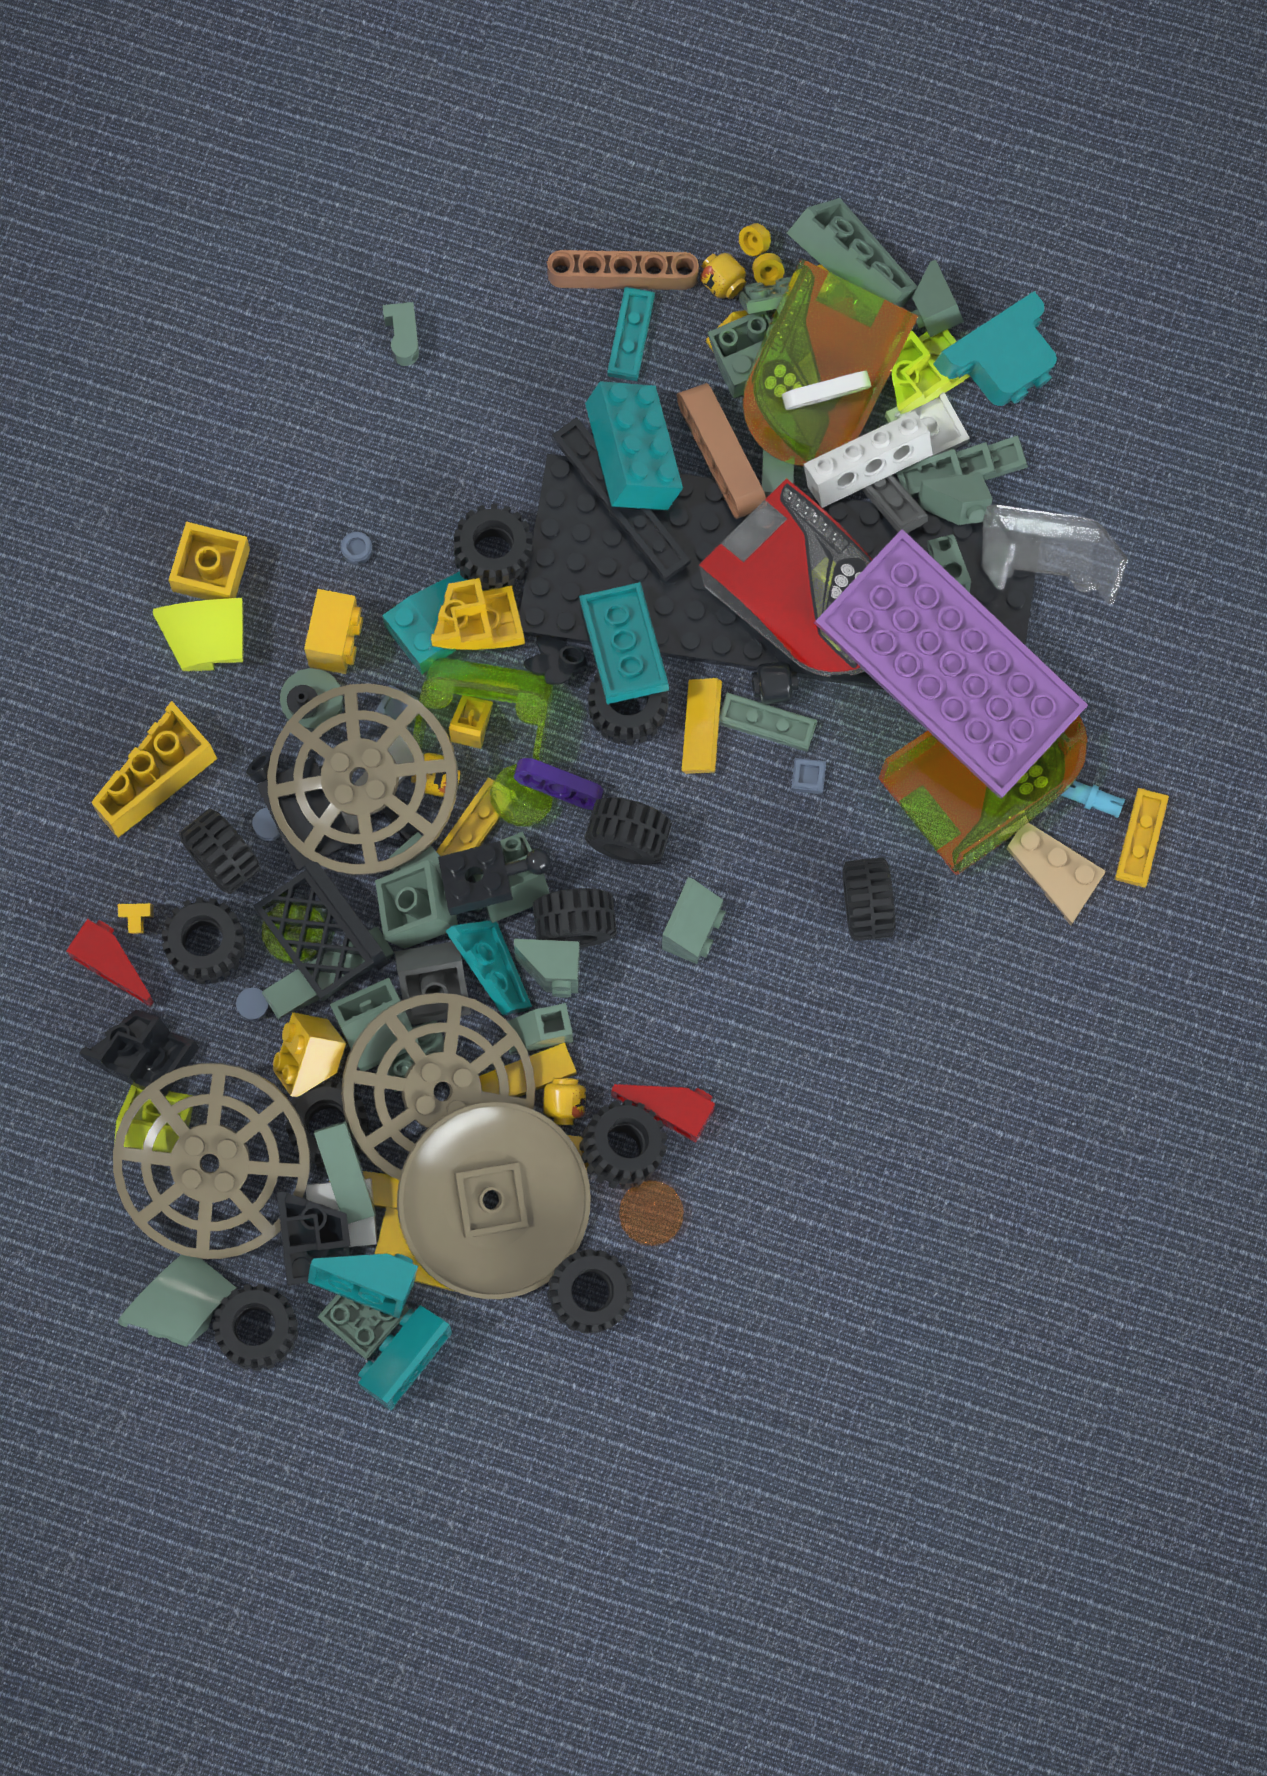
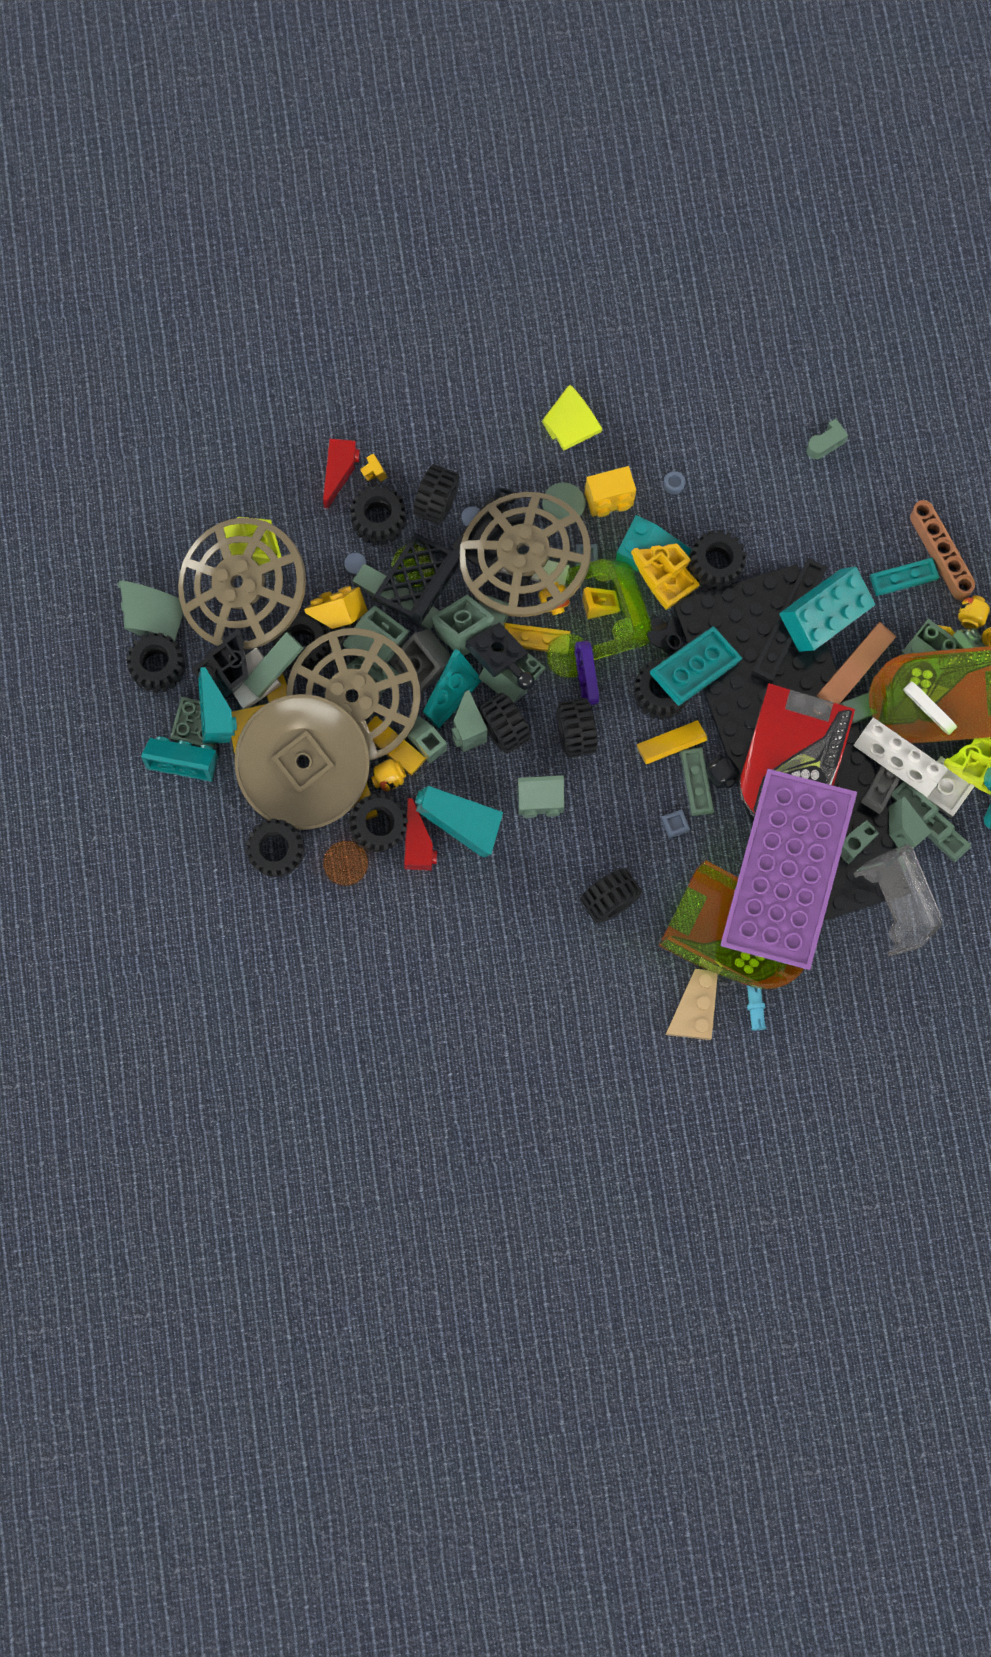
camera: 60 degrees right, 0 degrees up
(141, 1051) = (293, 514): black slope -> none
(154, 772) = (467, 434): yellow wedge -> none
(209, 563) = (614, 400): yellow brick -> none
(300, 696) = (560, 493): black tile -> none
(672, 1035) = (461, 818): none -> teal slope
(1141, 837) = (746, 1051): yellow tile -> none

